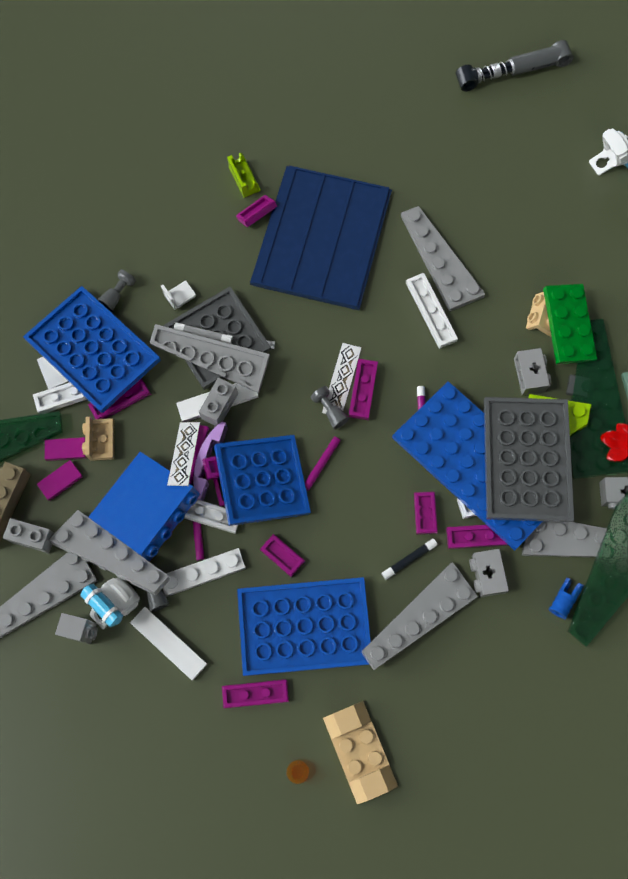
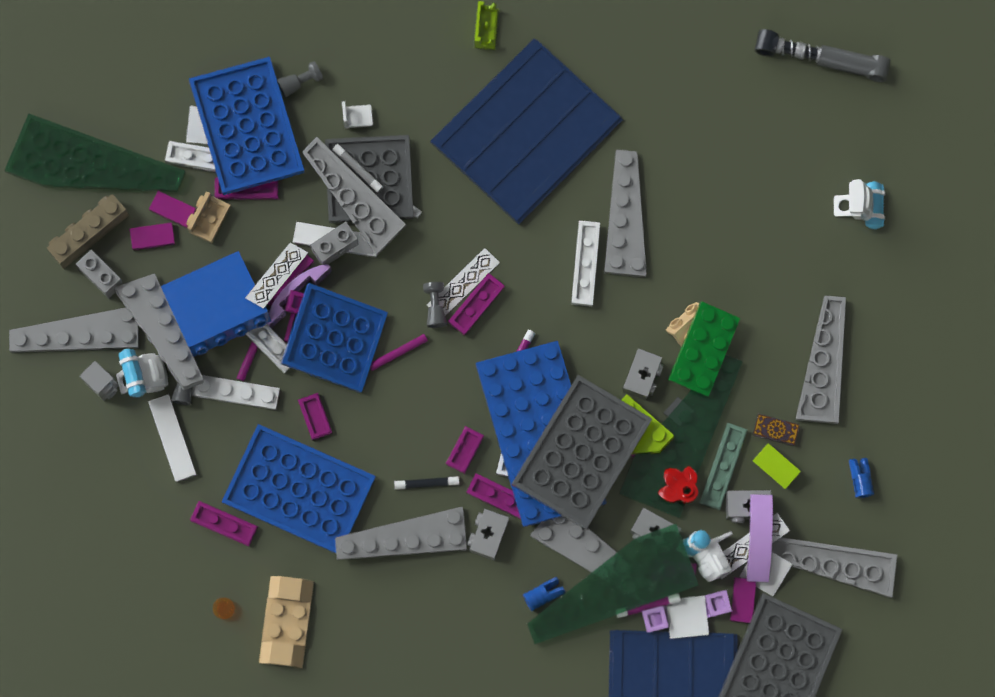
camera: 20 degrees right, 5 degrees up
(256, 211) = (477, 70): magenta tile -> none

